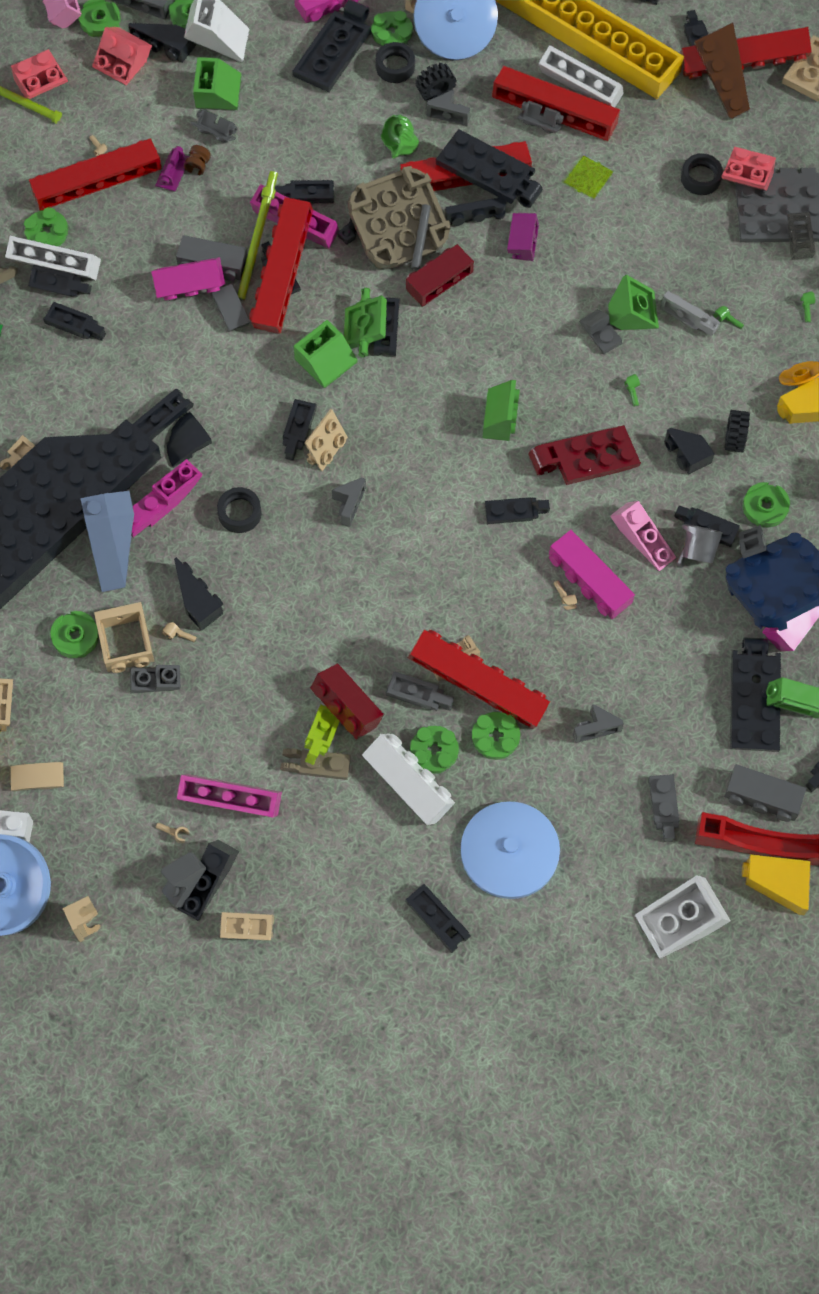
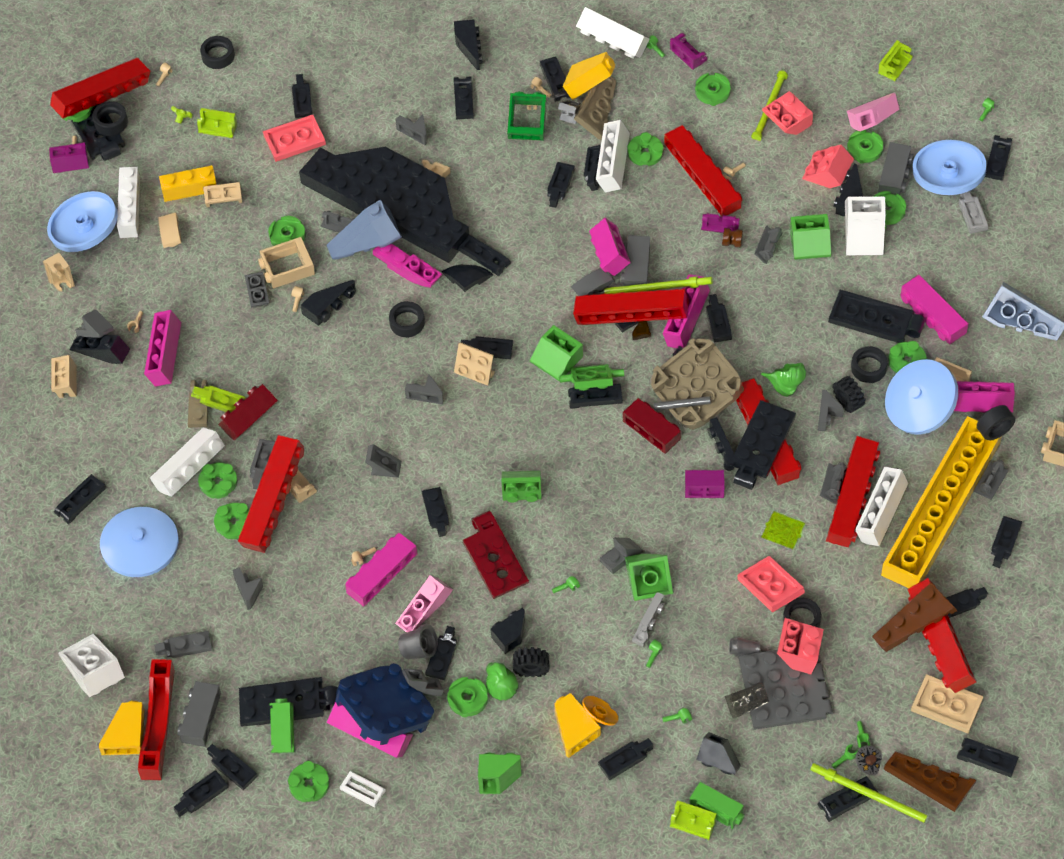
camera: 85 degrees right, 10 degrees down
(75, 571) = (334, 221): none -> dark grey hinge
(305, 271) = (641, 331): none -> dark brown tile
(444, 558) = (382, 462): none -> dark grey slope
(662, 192) = (771, 584): none -> coral plate
(731, 234) = (742, 646): none -> flat silver cone
(749, 468) = (500, 681): none -> bright green hair

